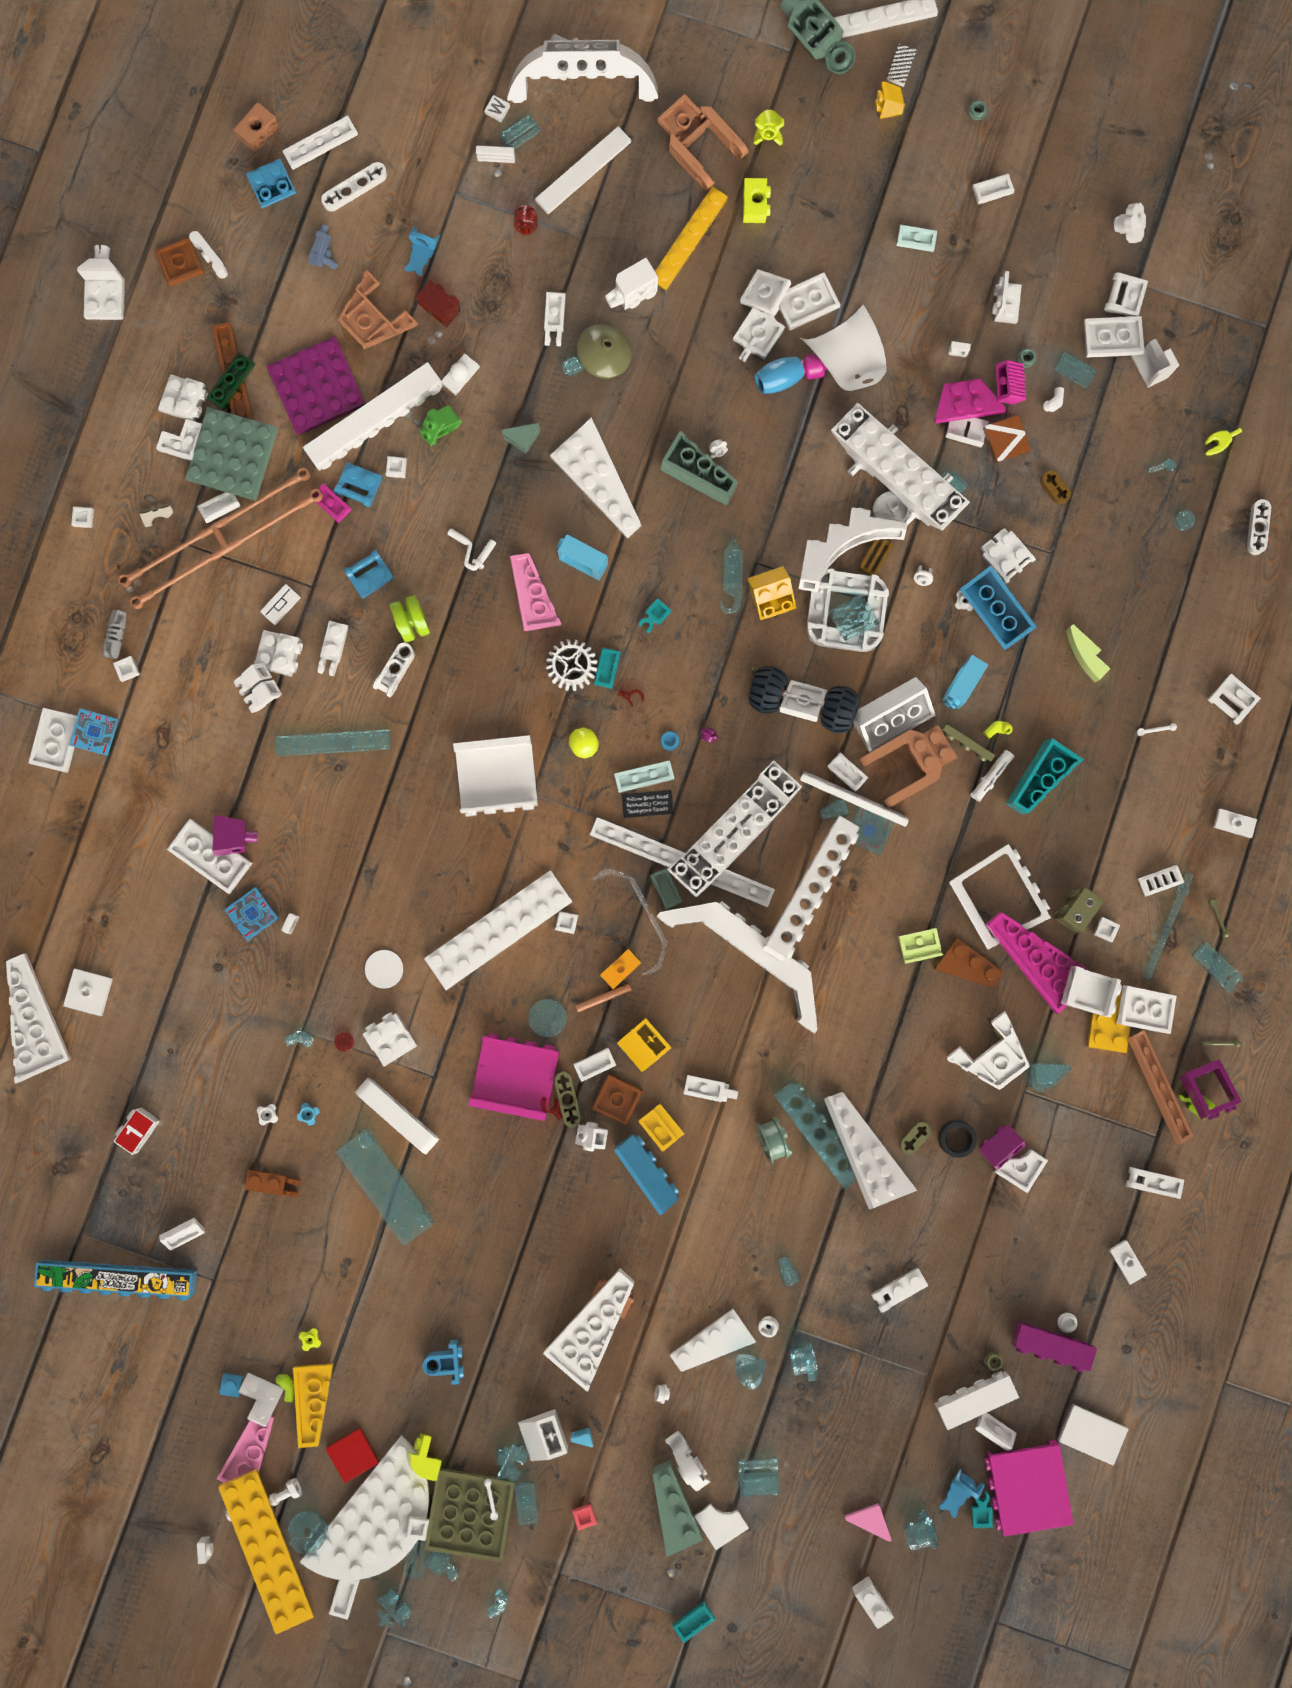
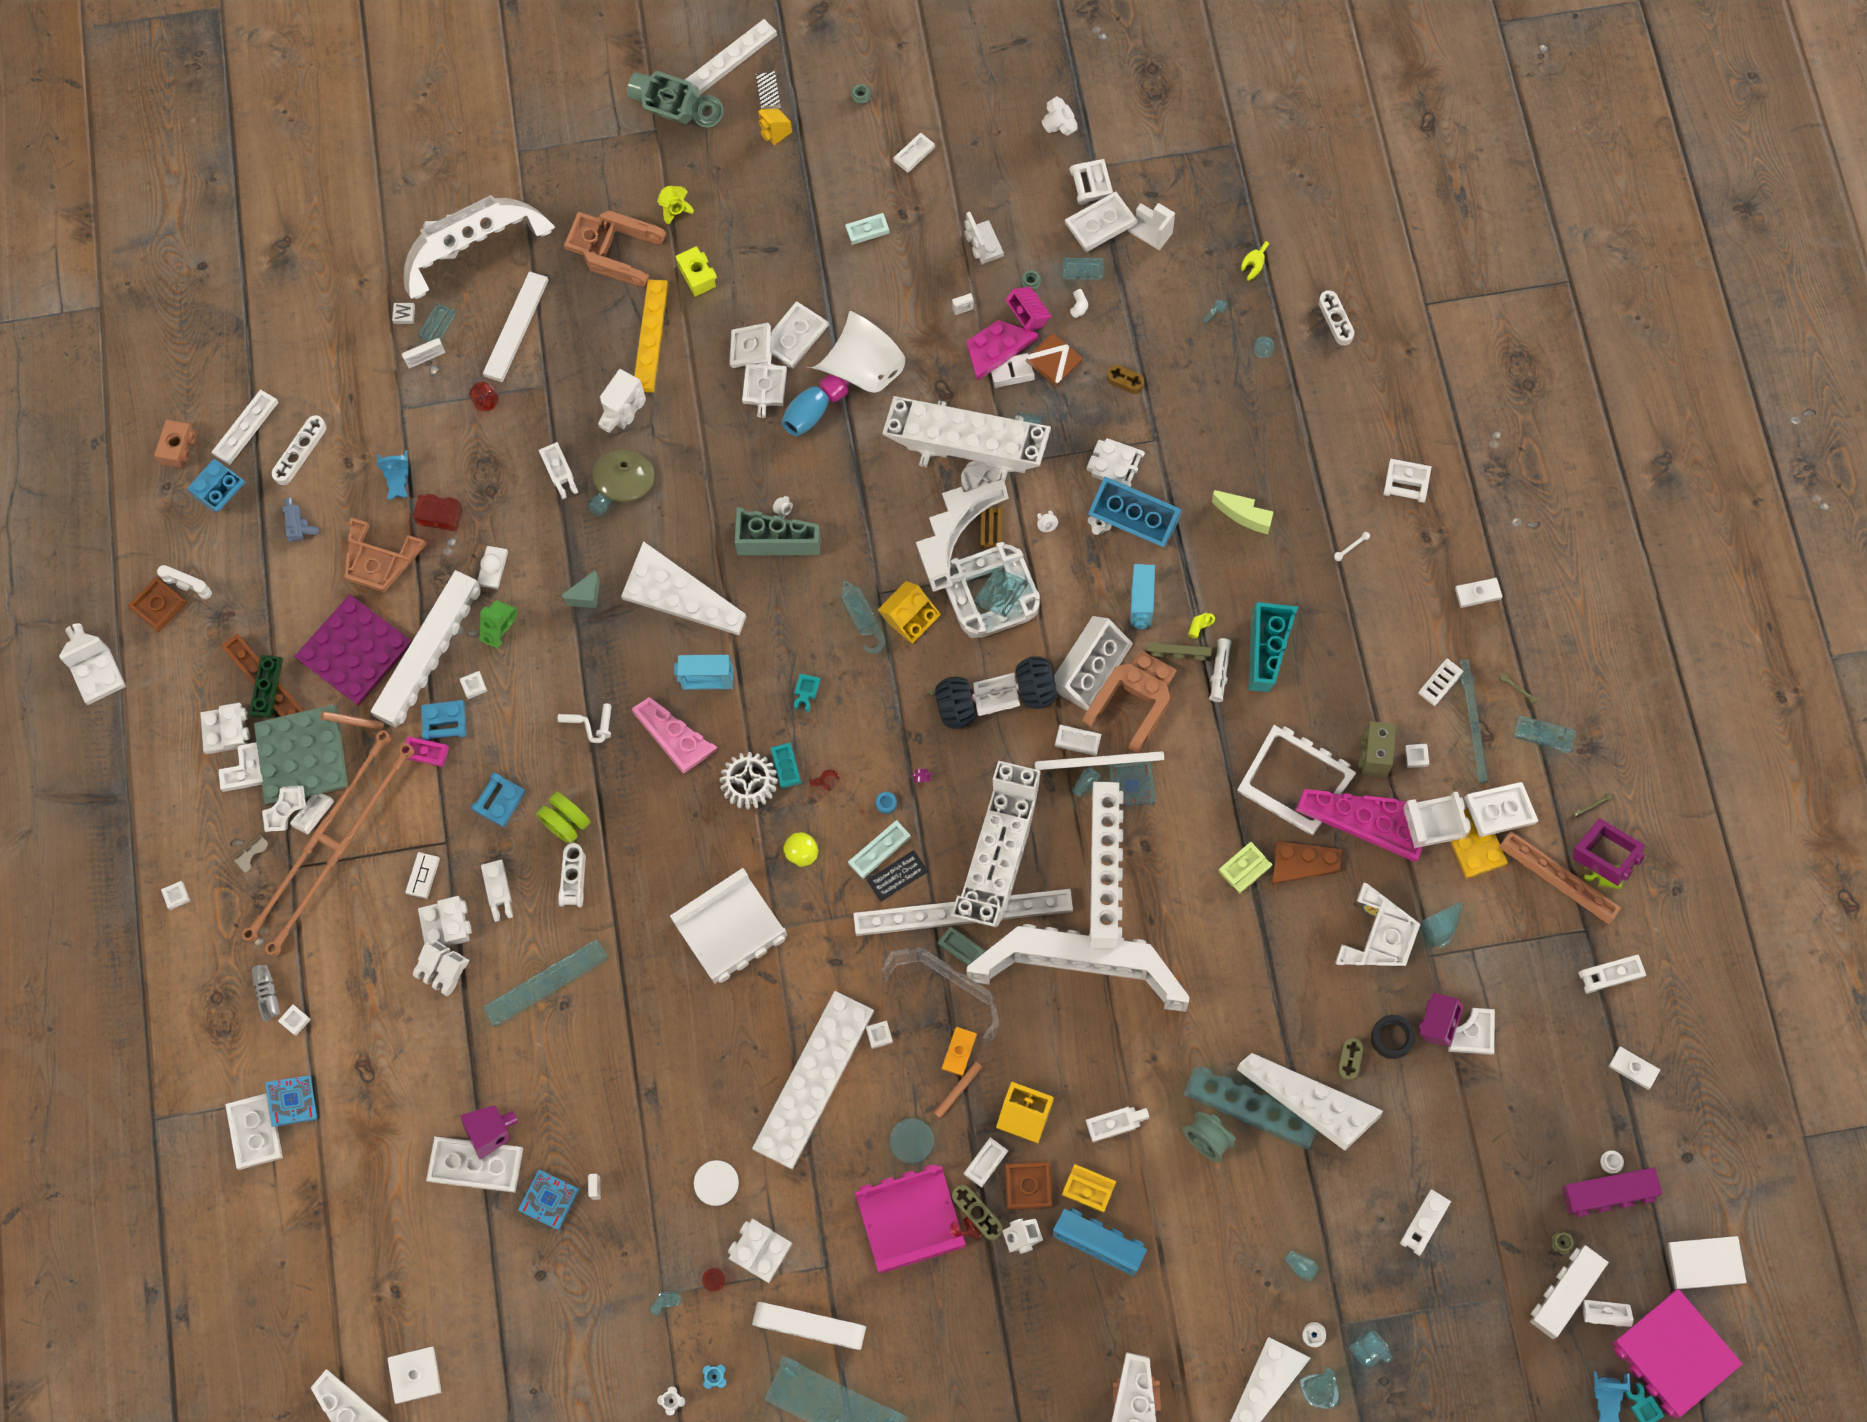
camera: 20 degrees left, 15 degrees down
(204, 488) = (289, 800): none -> white tile
(284, 447) = (352, 720): none -> nougat bar

